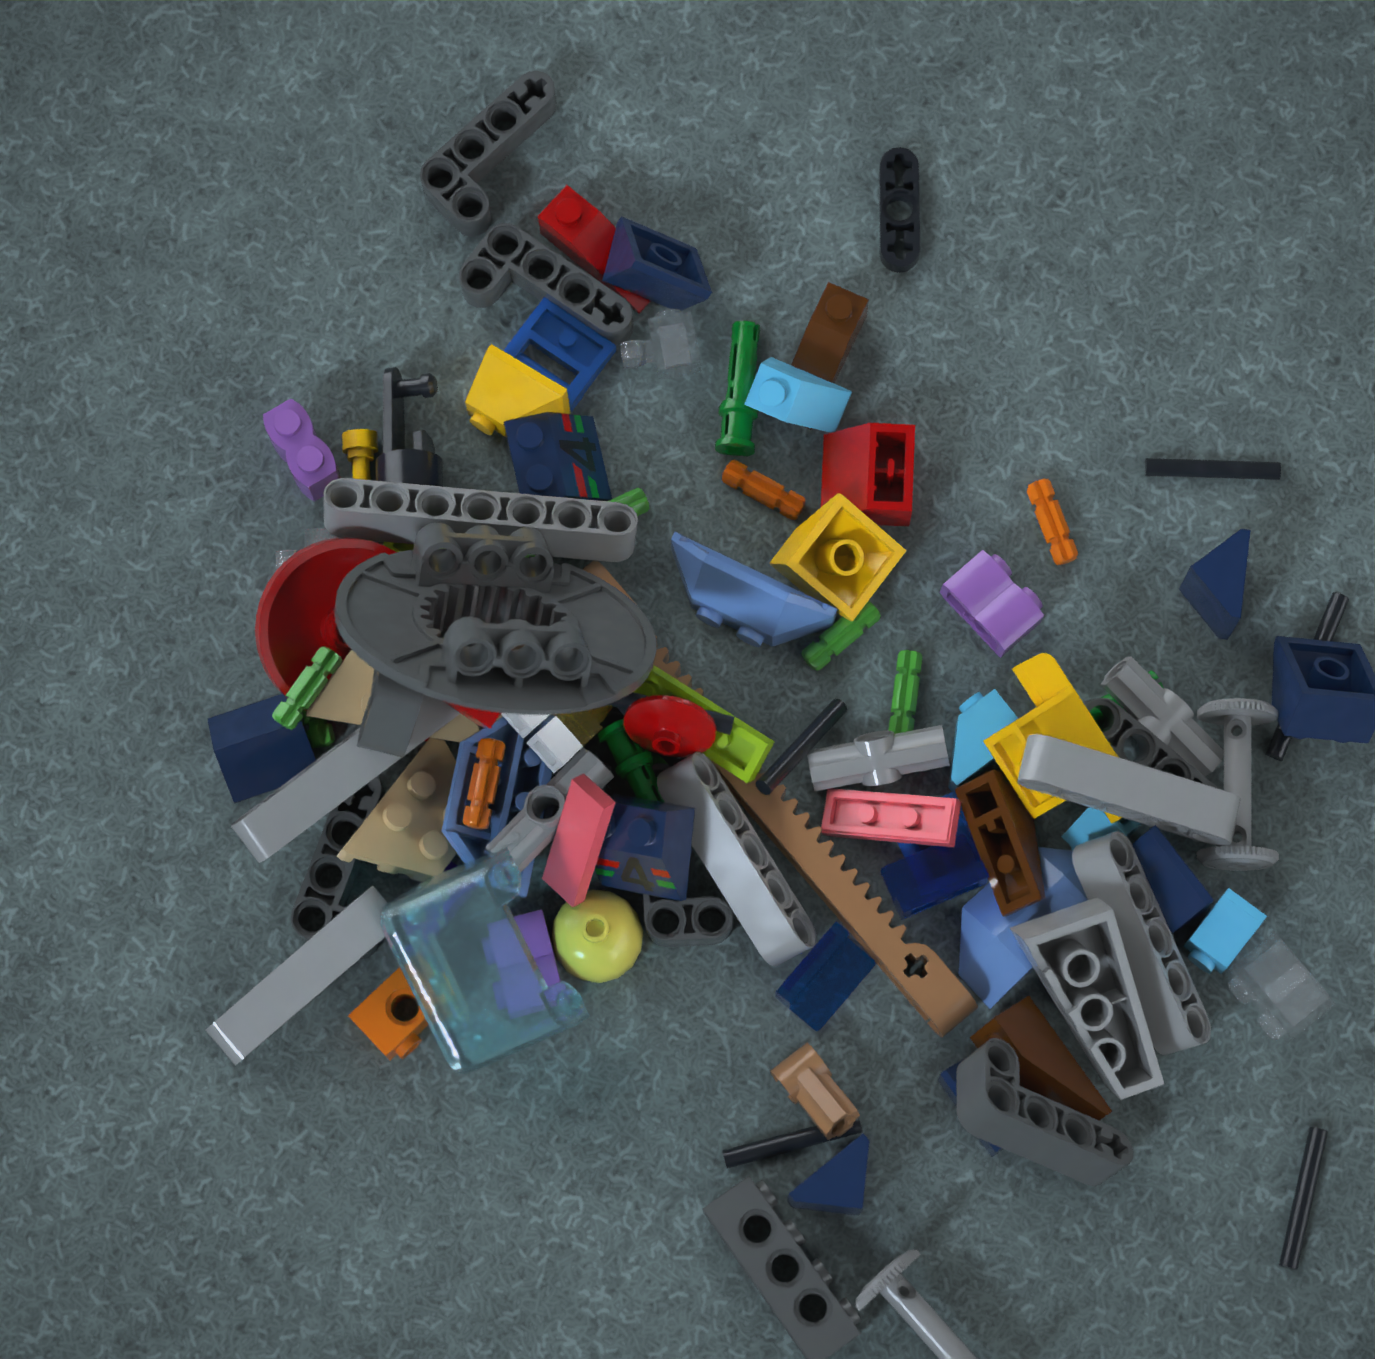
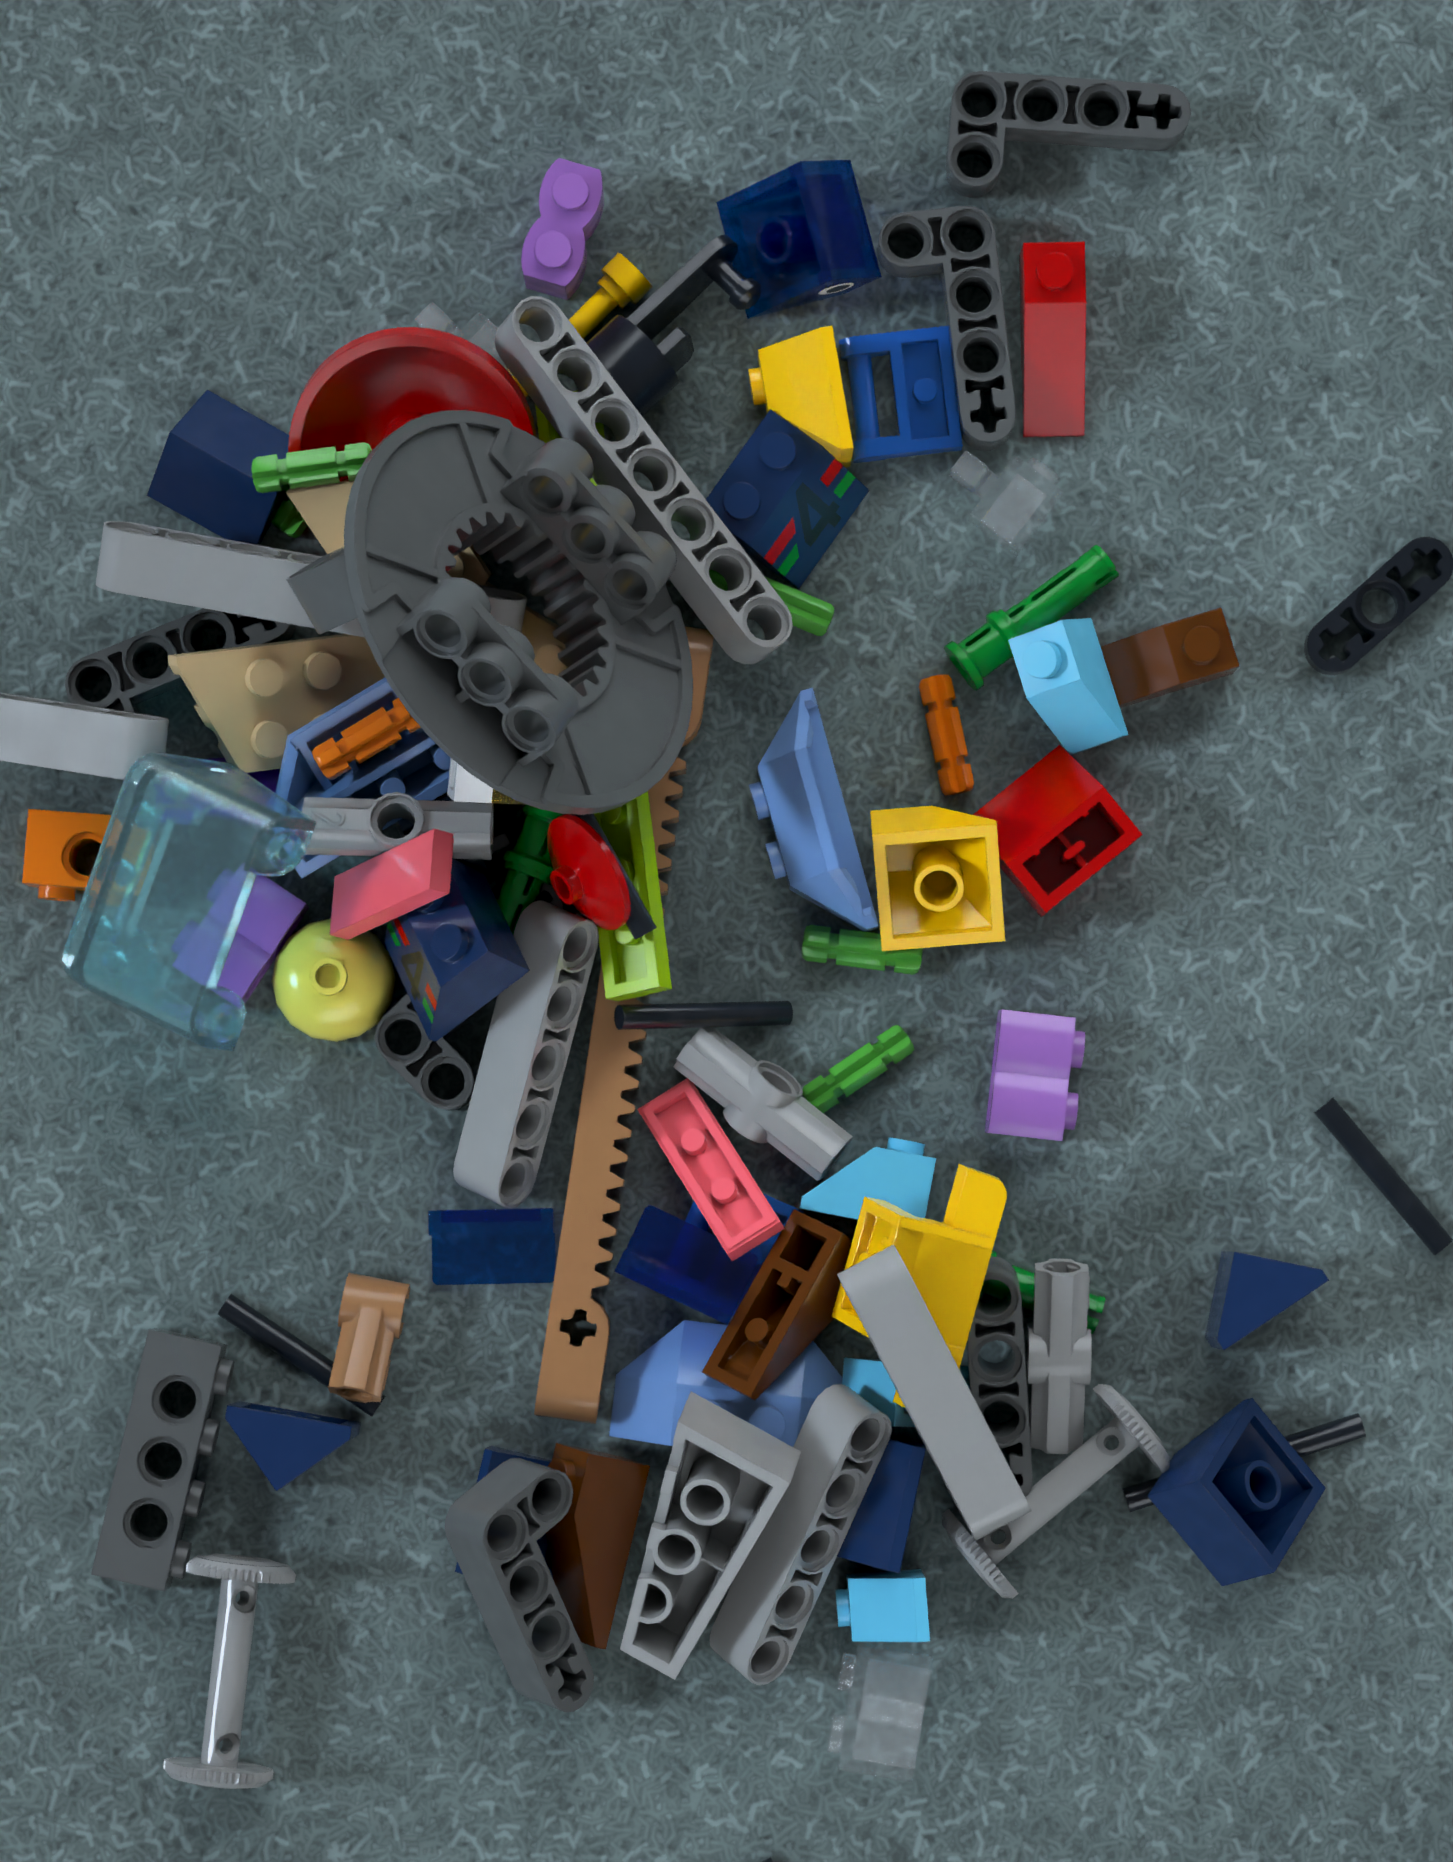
camera: 45 degrees right, 10 degrees up
(423, 330) = (801, 235): none -> clear blue slope
(656, 267) = (1085, 411): dark blue slope -> none
(1052, 521) = (1176, 1060): orange axle -> none

